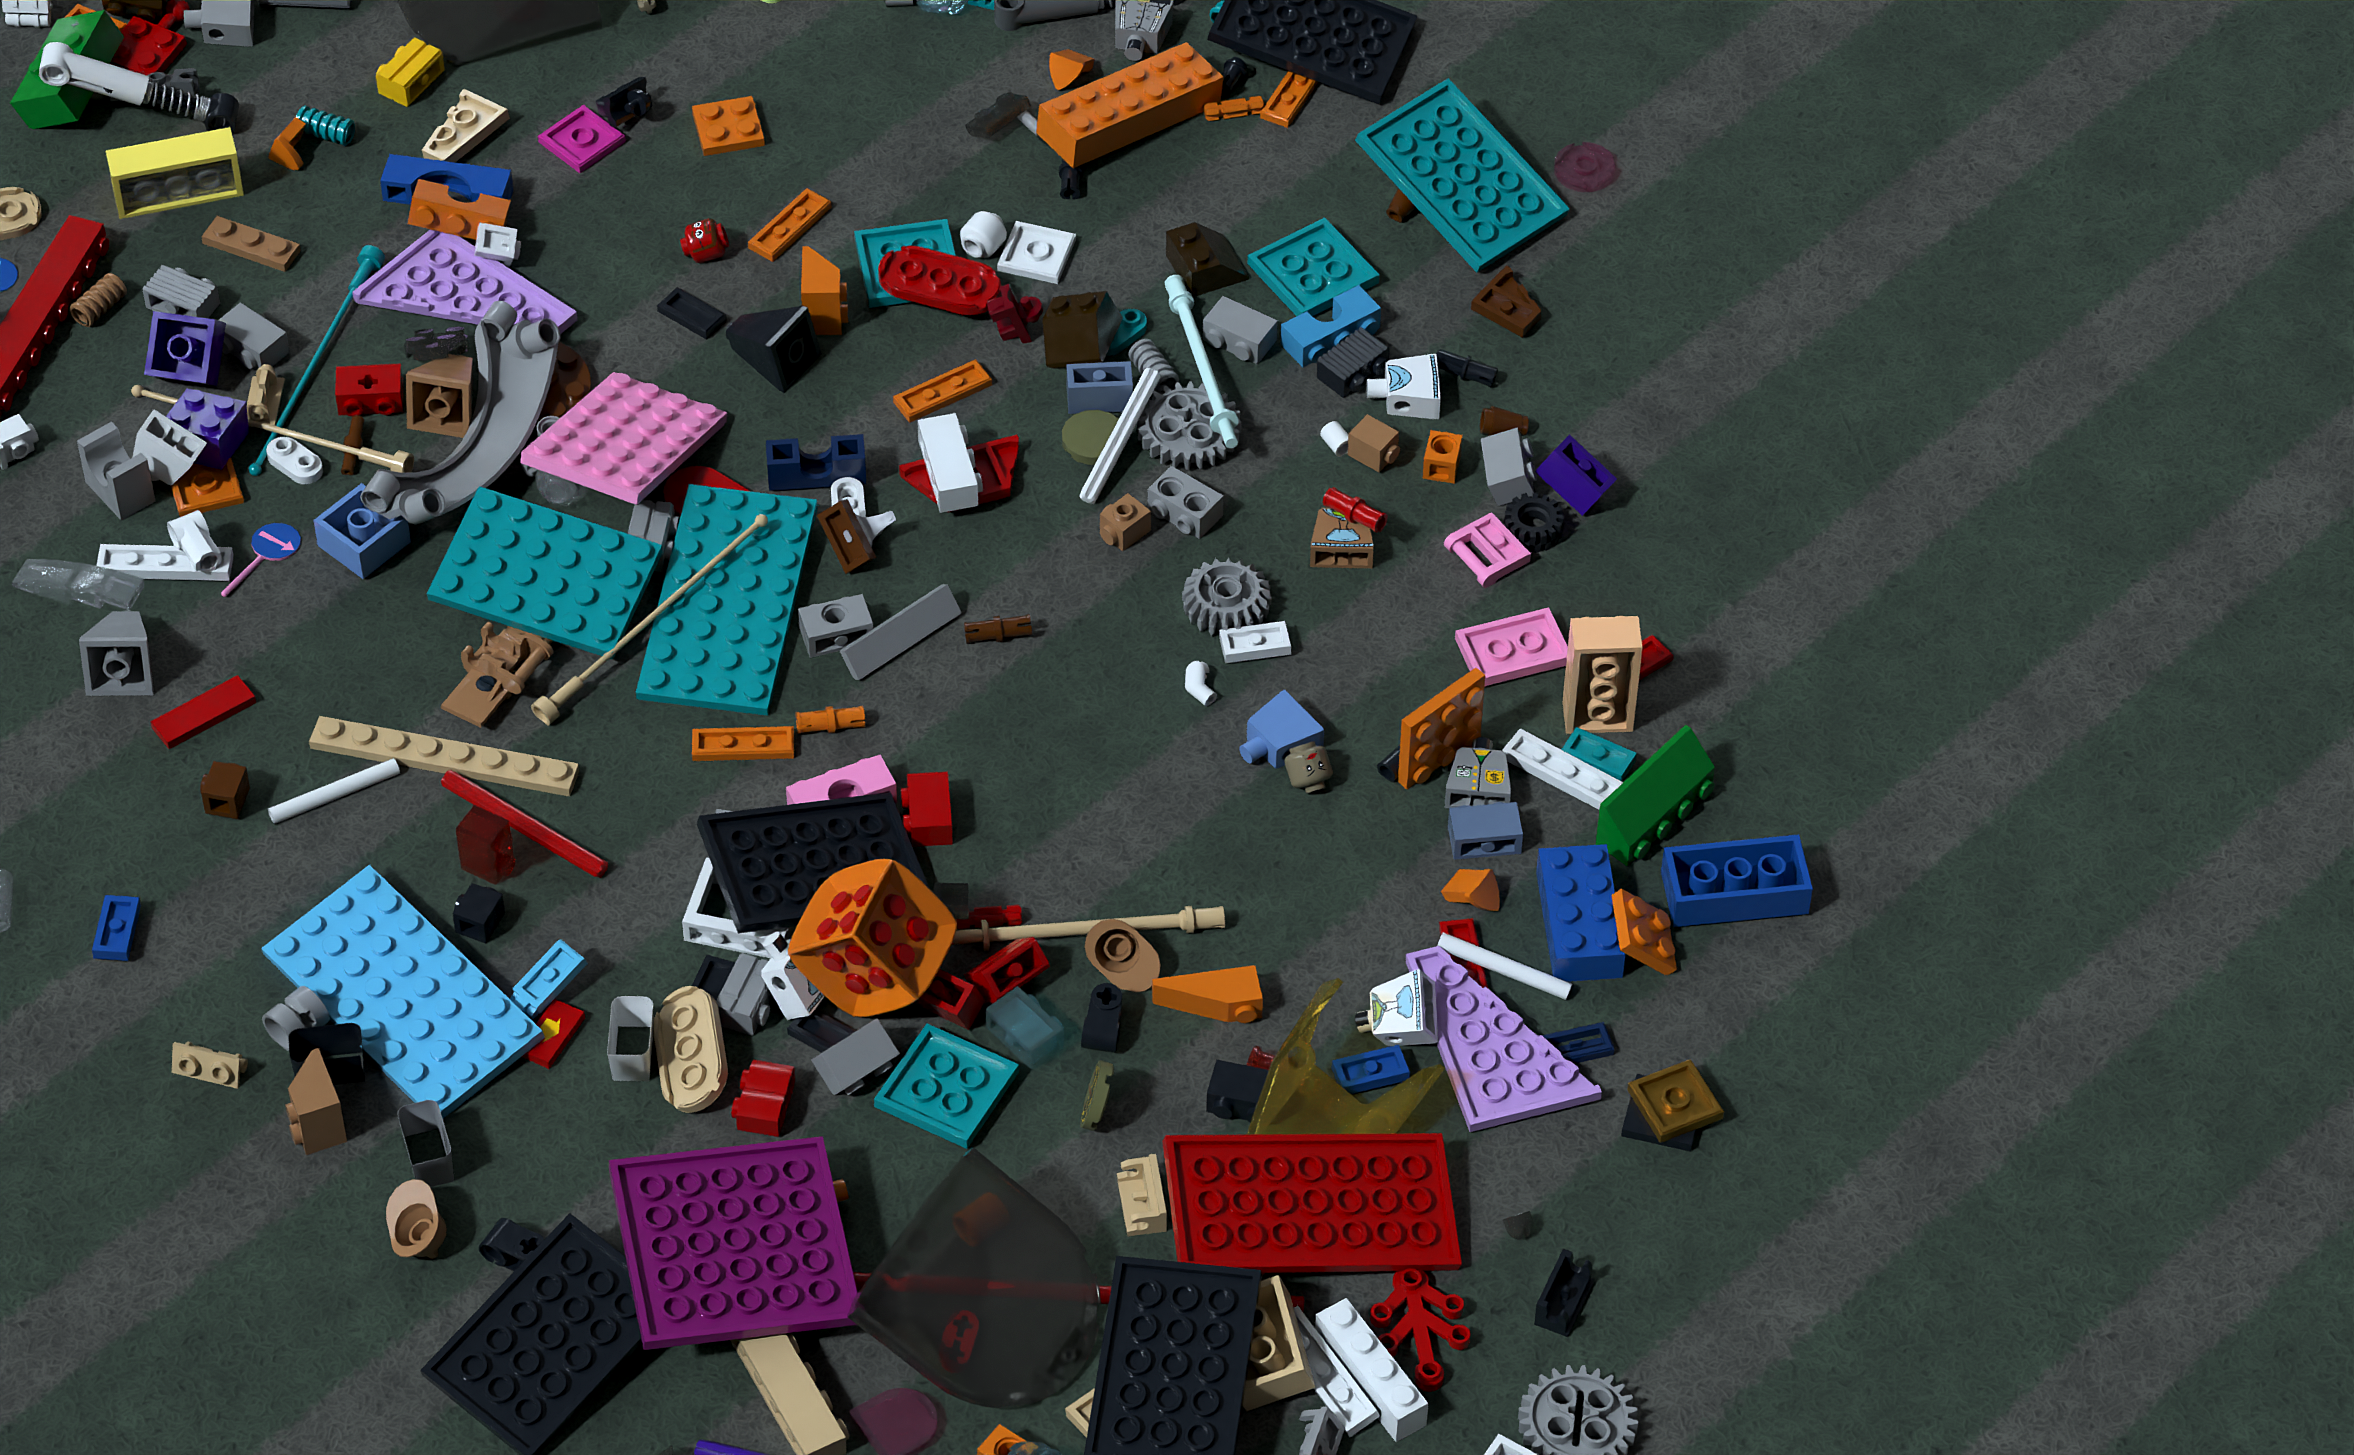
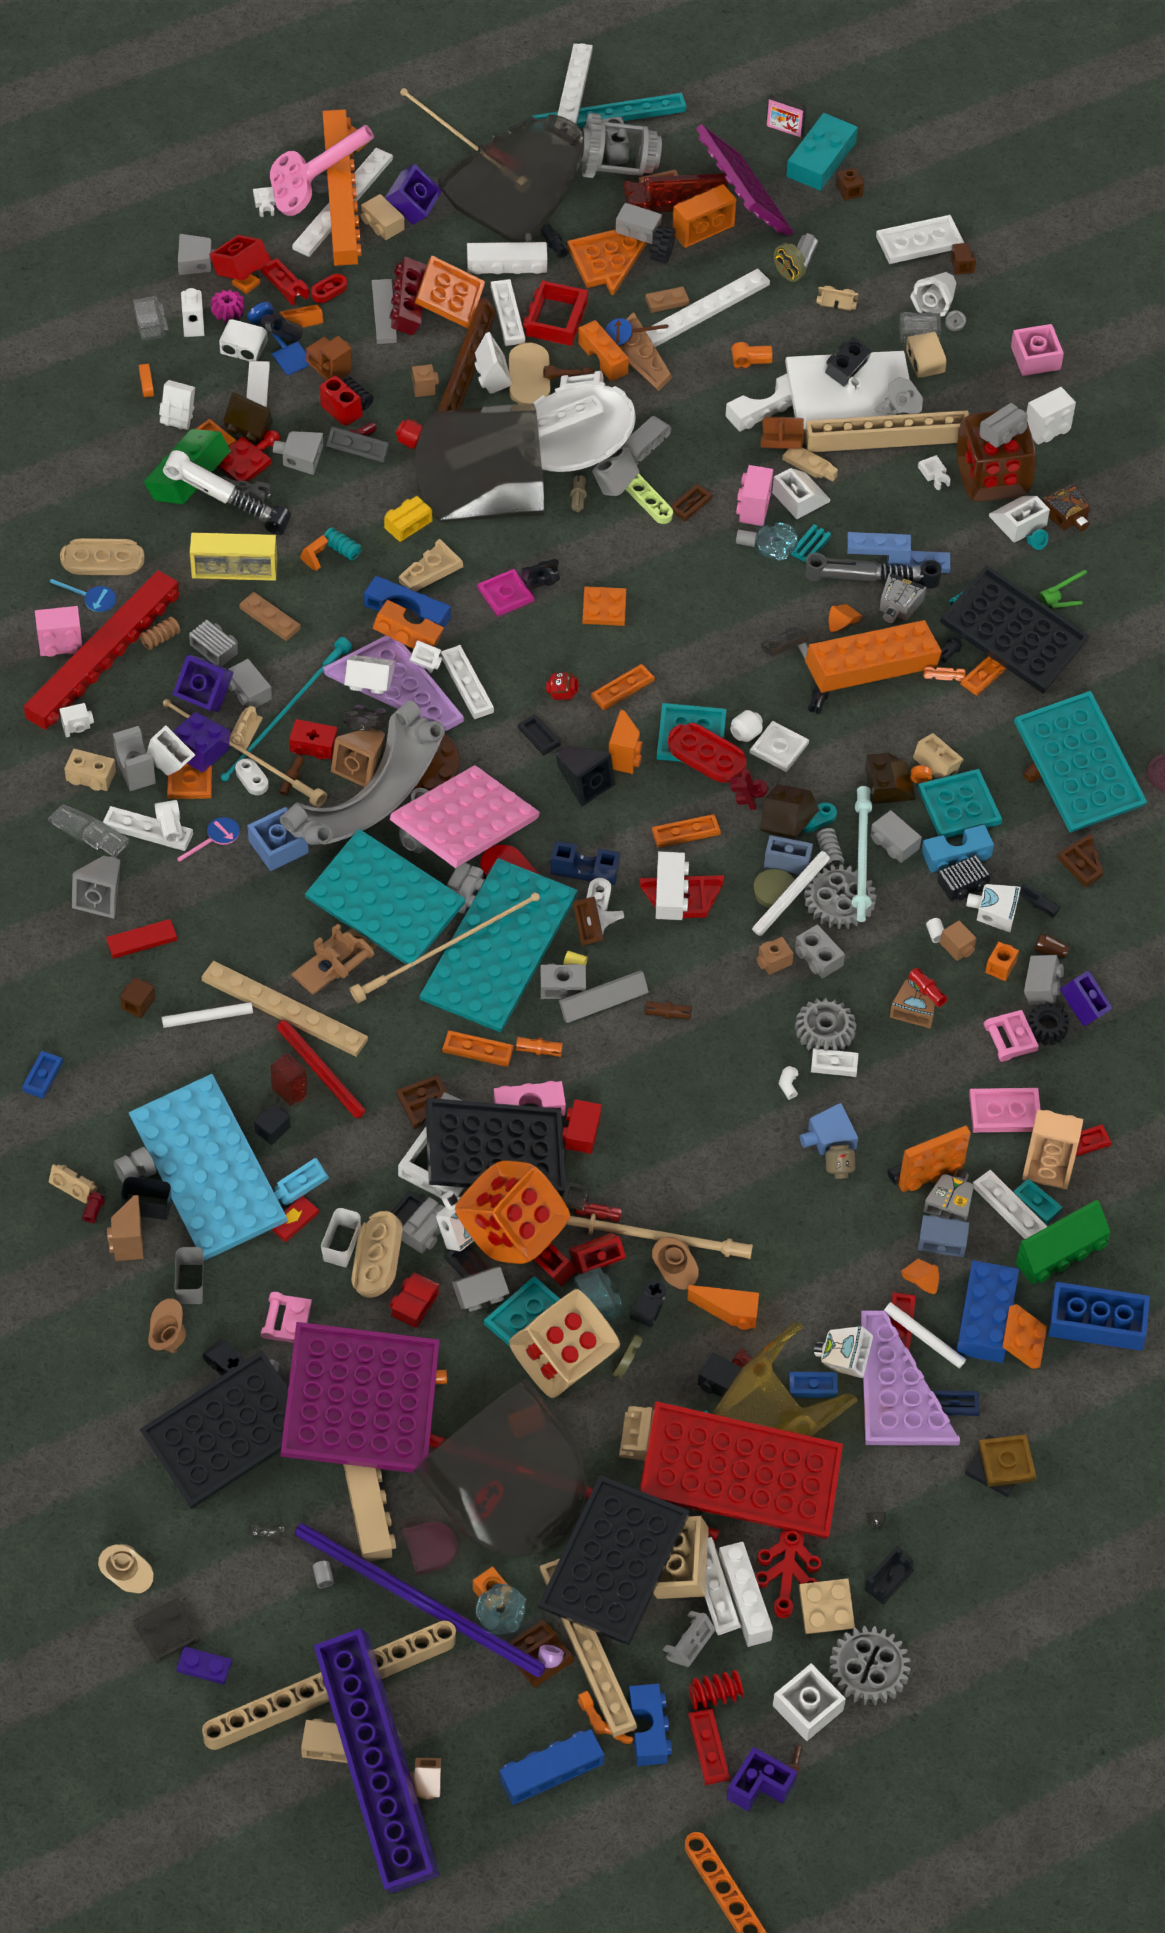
camera: 15 degrees right, 5 degrees up
(54, 503) = (90, 770): none -> tan brick
(250, 1089) = (93, 1207): none -> dark red pin
(423, 283) = (369, 673): none -> white slope
(566, 266) = (467, 682): none -> white plate
(594, 1163) = (296, 1310): none -> bright pink plate
(677, 829) = (414, 1097): none -> reddish brown wing
(838, 591) = (574, 958): none -> light yellow hinge
(1006, 1092) = (564, 1343): none -> tan piece
(1247, 242) = (921, 774): none -> orange tile
(1262, 215) = (938, 756): none -> tan hinge
(1490, 1357) = (826, 1606): none -> tan plate

